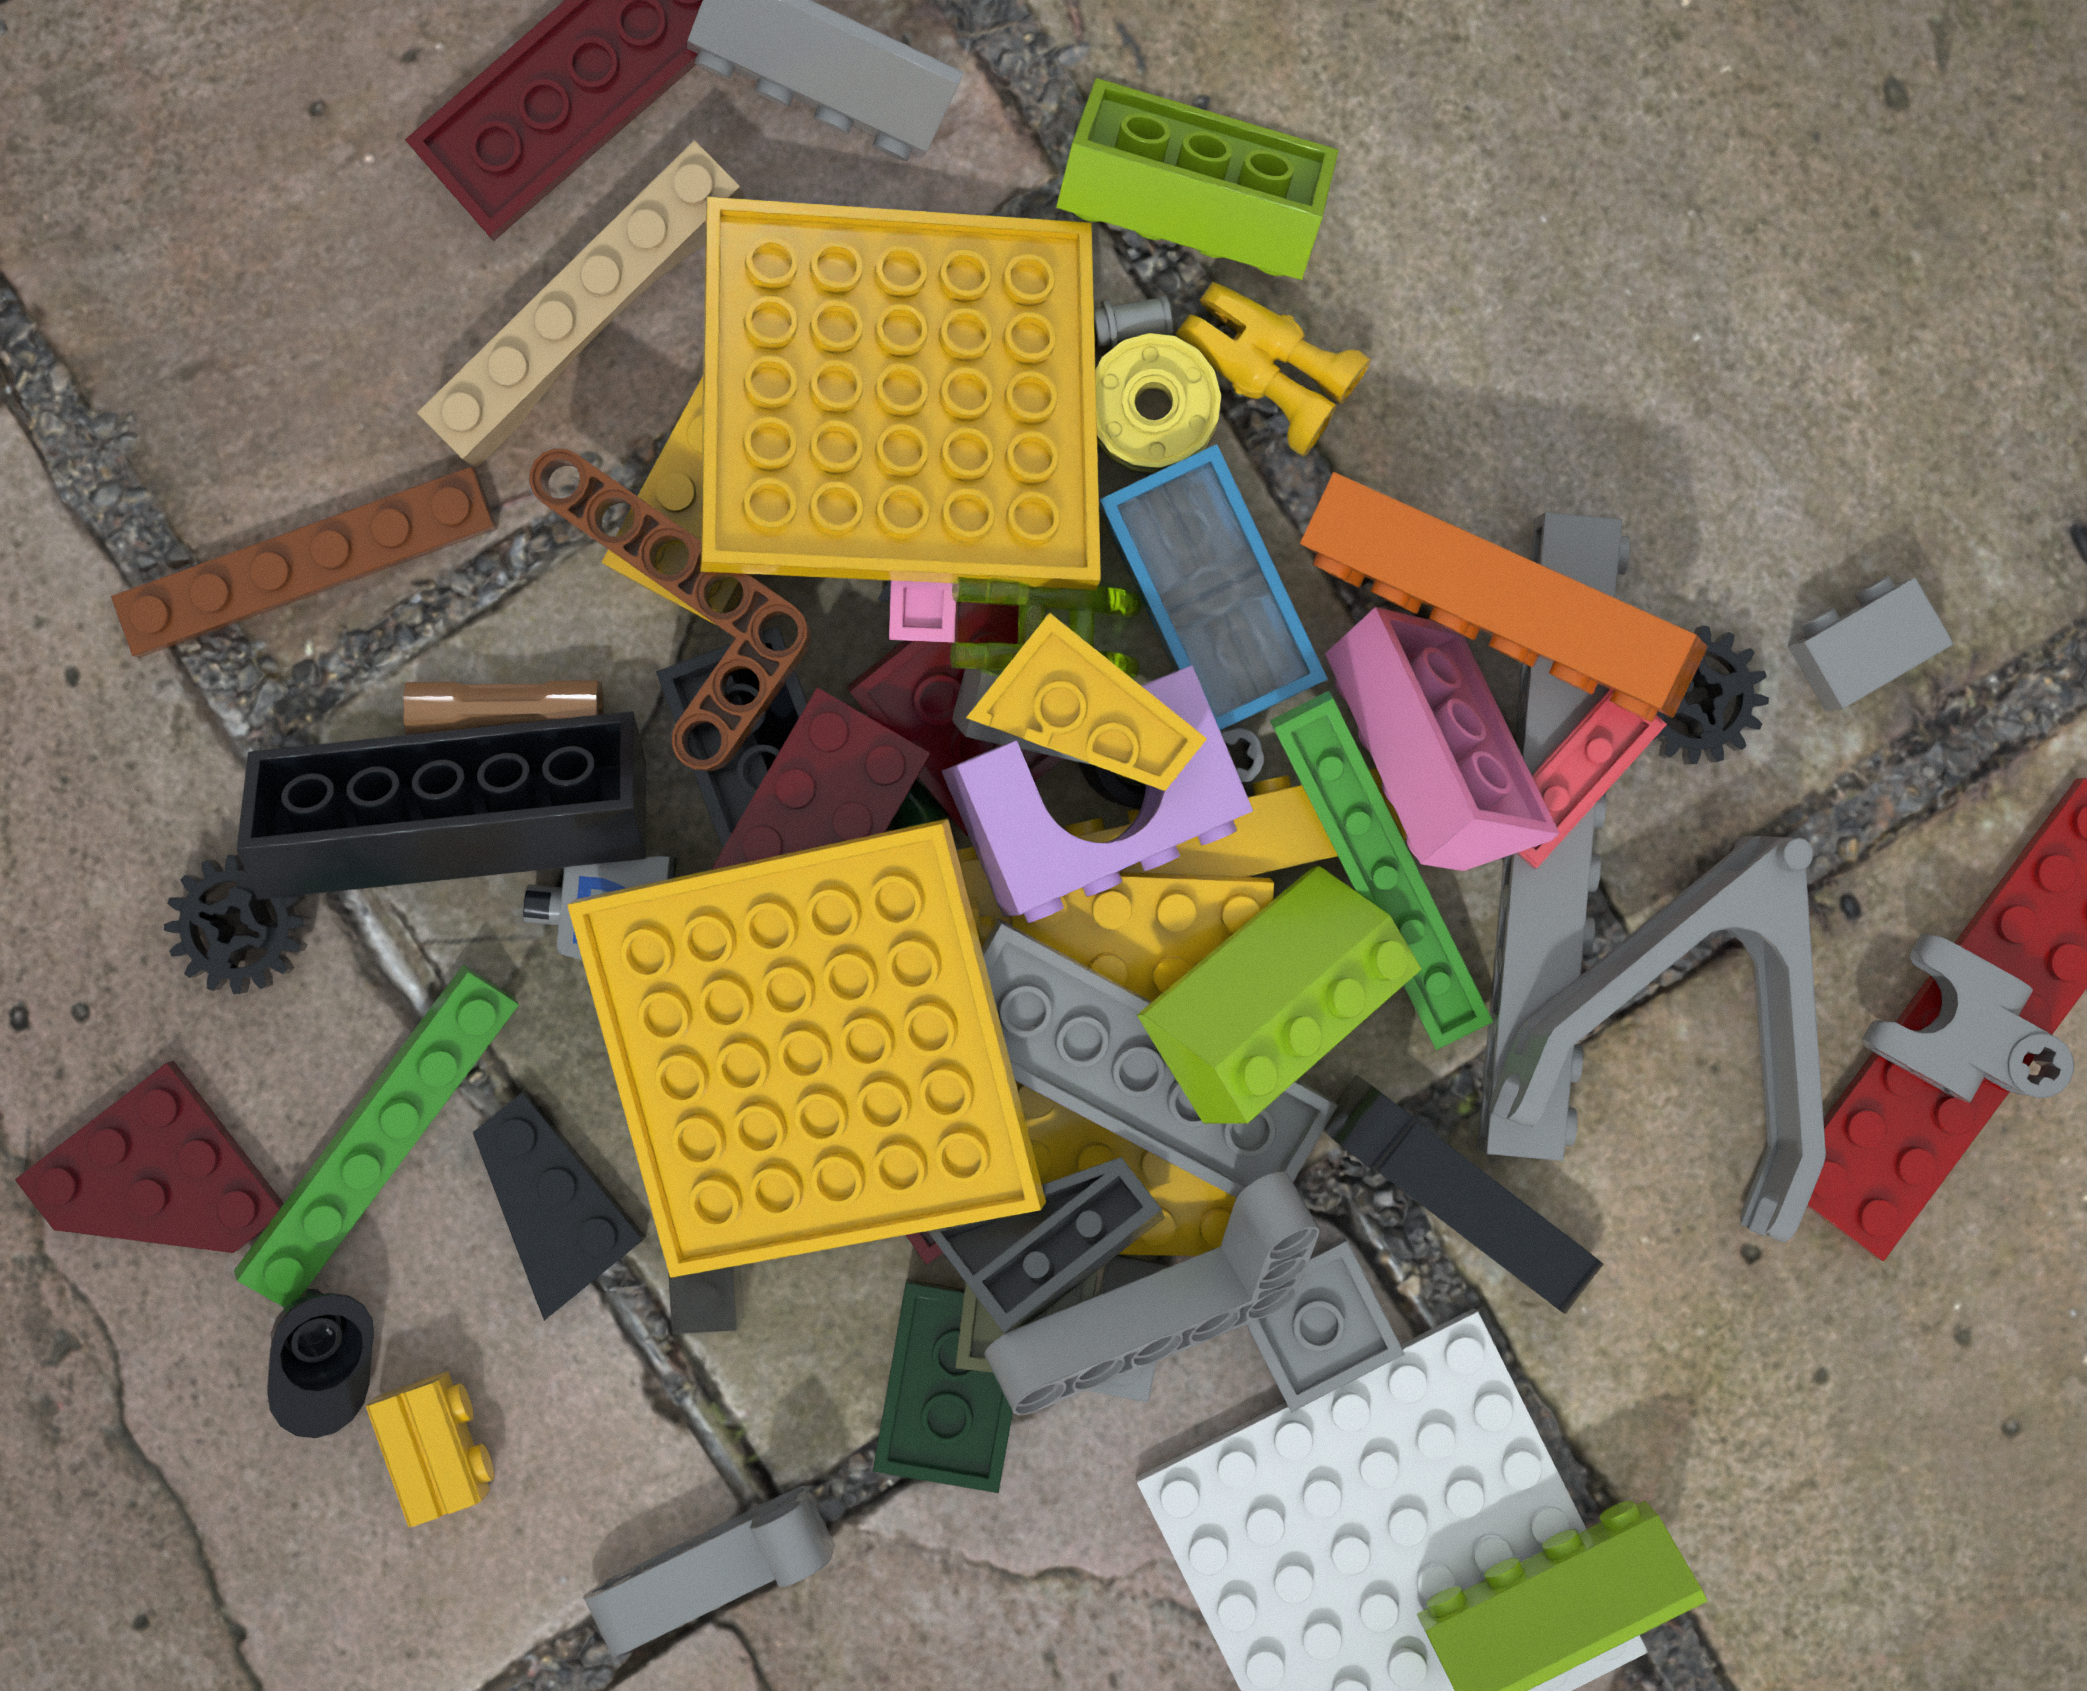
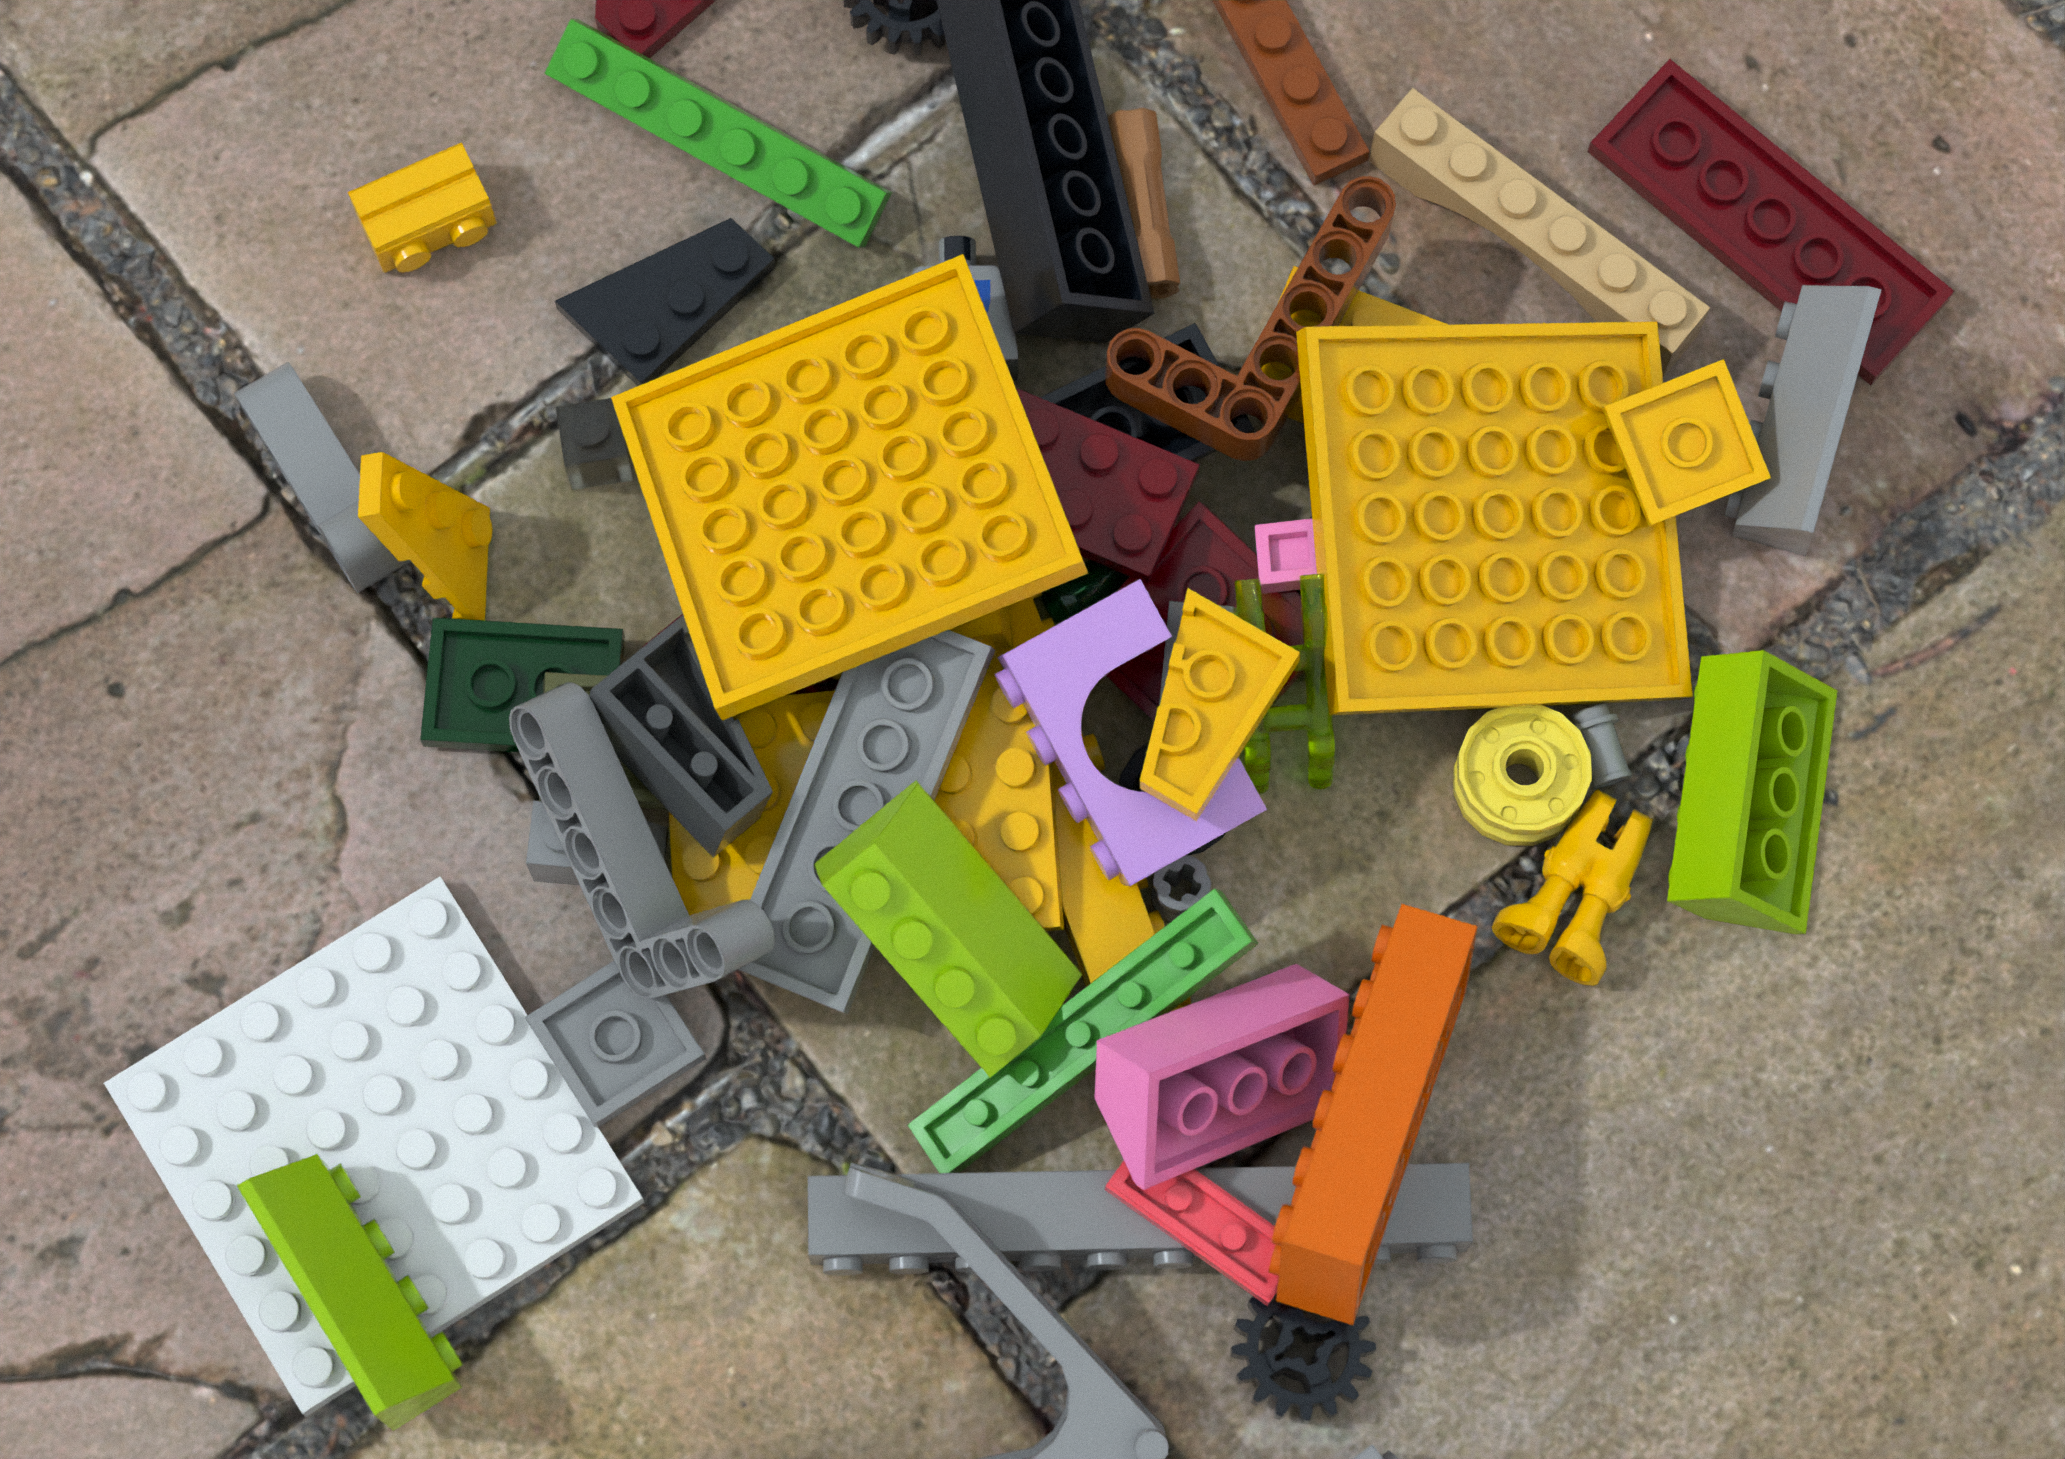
camera: 80 degrees right, 15 degrees down
(319, 1363) = (497, 99): black piece -> none
(791, 1472) = (431, 527): none -> yellow wing
(846, 186) = (1686, 442): none -> yellow plate
(1211, 586) = (1344, 842): clear brick -> none
(1460, 1194) = (824, 1059): black beam -> none

